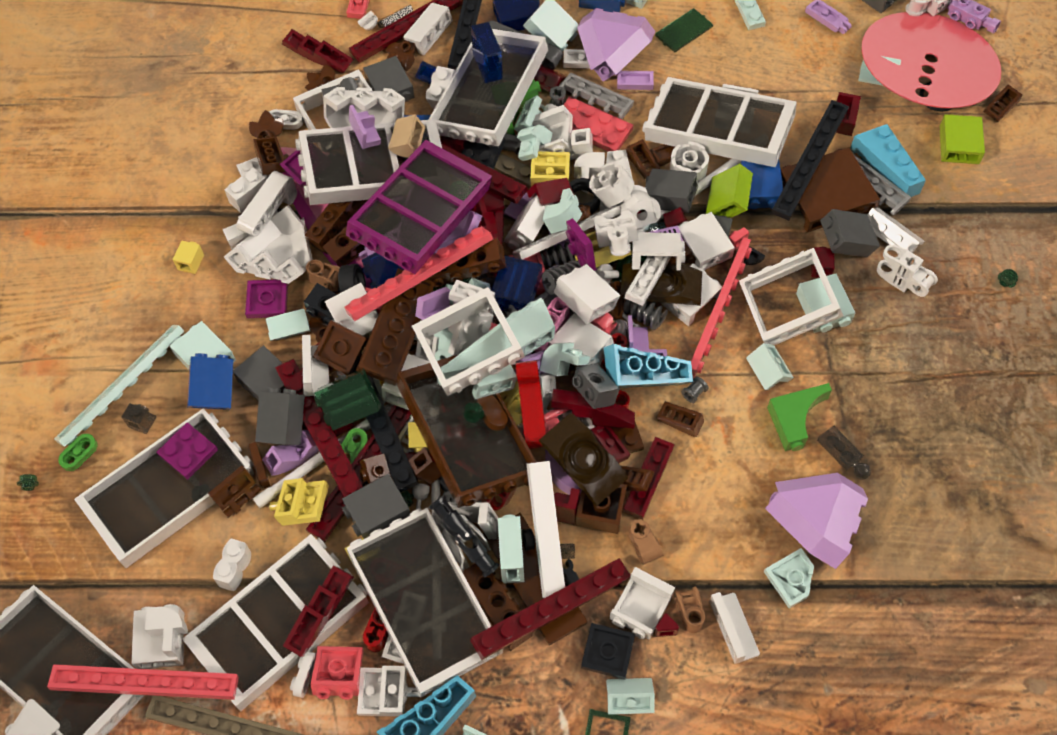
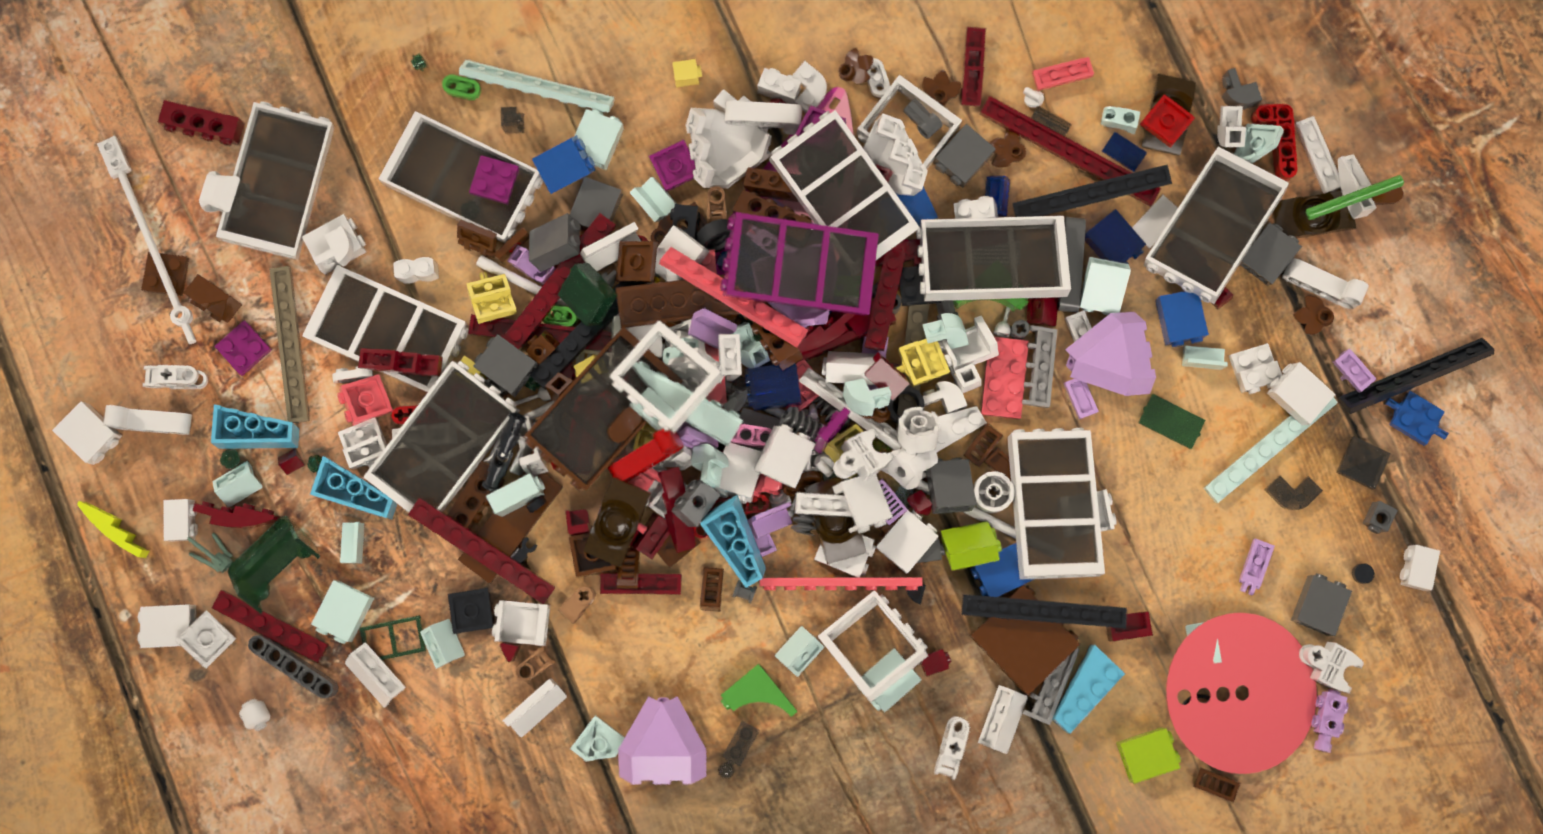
camera: 65 degrees right, 20 degrees up
(143, 682) = (287, 255): coral plate -> none
(269, 154) = (823, 87): reddish brown piece -> none
(364, 128) = (868, 169): lavender panel -> none
(406, 136) = (879, 213): tan brick -> none
(429, 27) = (1051, 161): white panel -> none
(471, 416) = (612, 410): clear green plate -> none
(487, 52) = (1019, 241): clear blue brick -> none
(528, 113) = (980, 311): light aqua panel -> none
(545, 527) = (543, 516): white tile -> none
(567, 551) = (541, 538): clear smoke tile -> none
(737, 236) = (926, 571): coral plate -> none
(849, 233) = (974, 678): dark grey brick -> none

